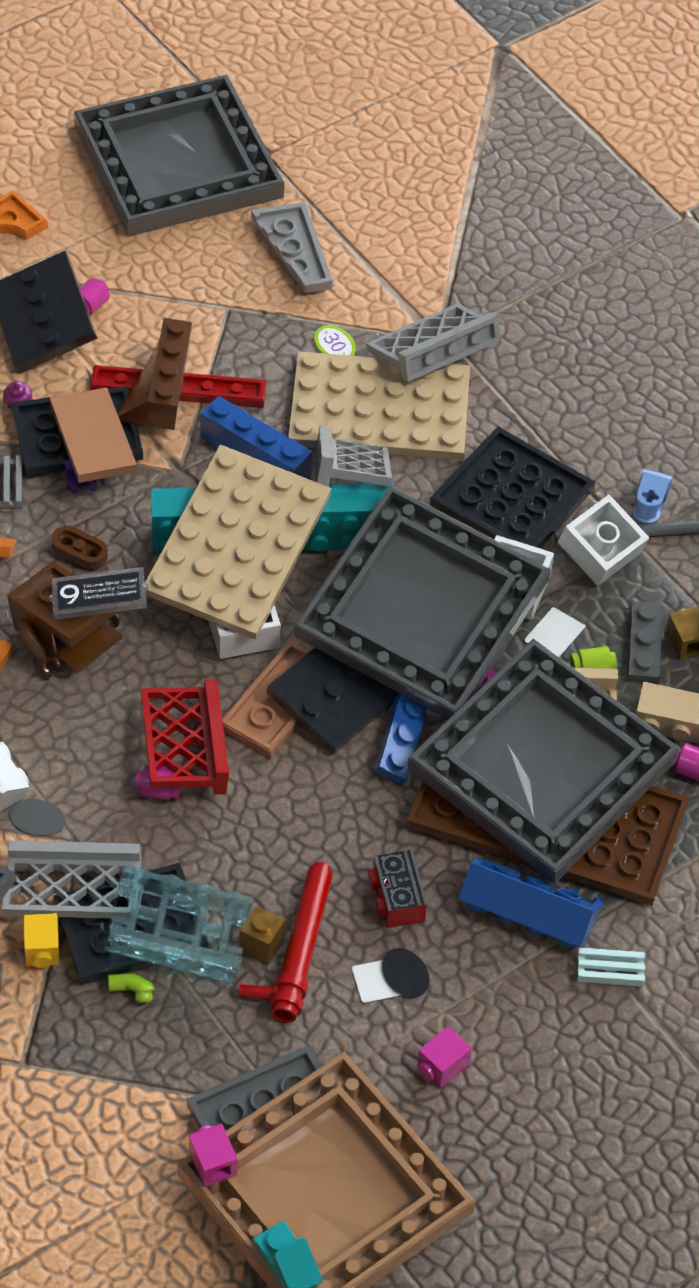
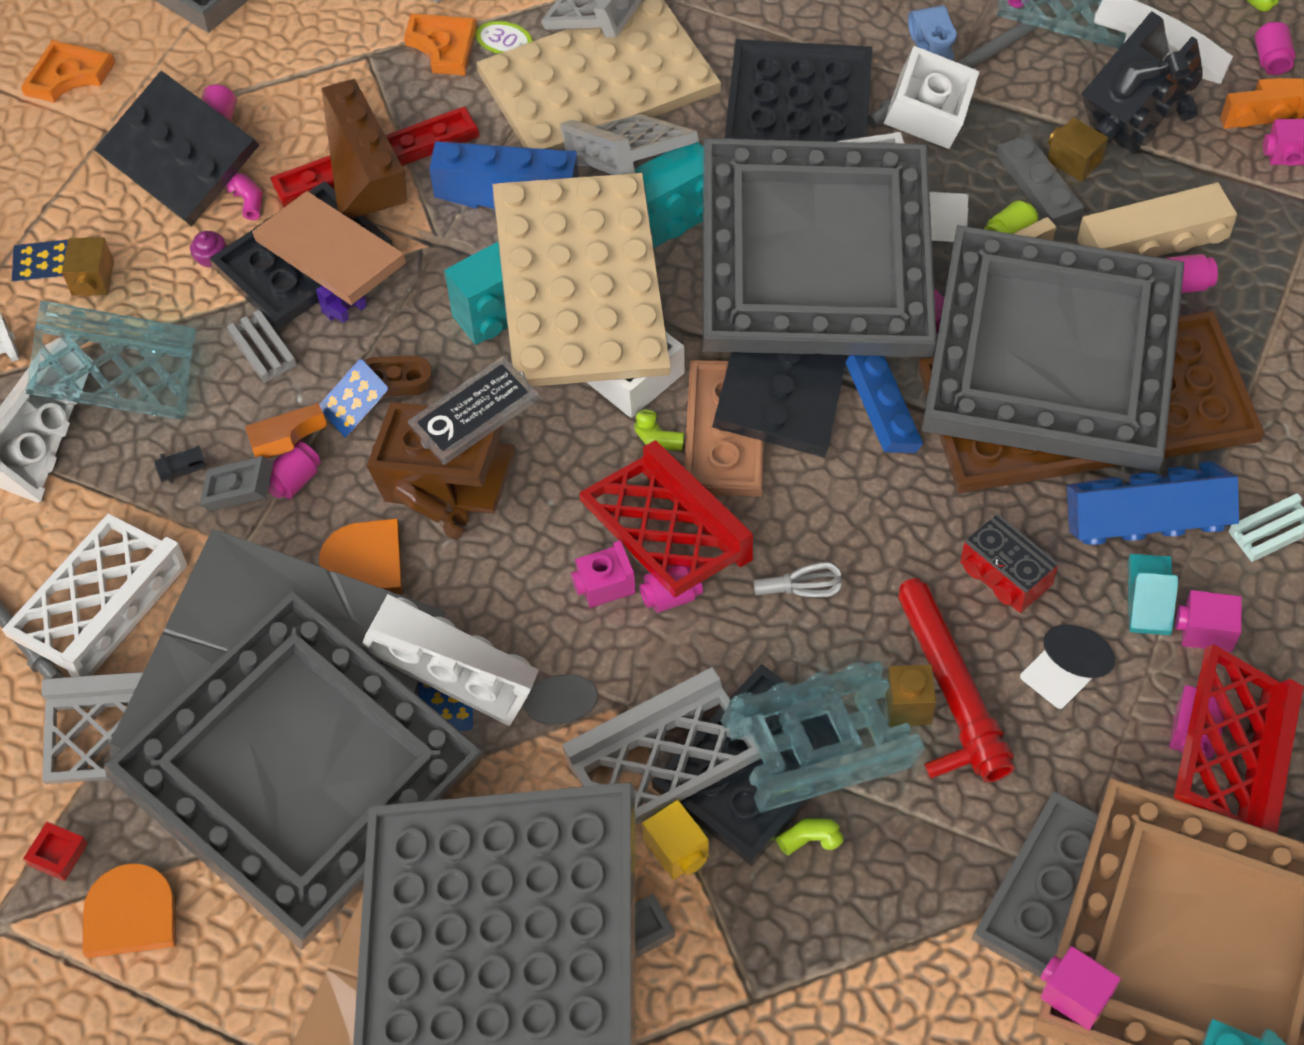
camera: 25 degrees left, 5 degrees up
(41, 548) = (353, 397): none -> sticker
(73, 370) = (250, 191): none -> dark pink arm
(120, 752) = (604, 575): none -> dark pink brick
(226, 677) = (649, 431): none -> lime arm
(245, 823) = (791, 582): none -> light grey piece
(288, 324) = (444, 40): none -> orange tile
(475, 1099) = (1266, 757): none -> red fence
(484, 962) = (1151, 594): none -> slope
(507, 999) = (1210, 620): none -> dark pink brick

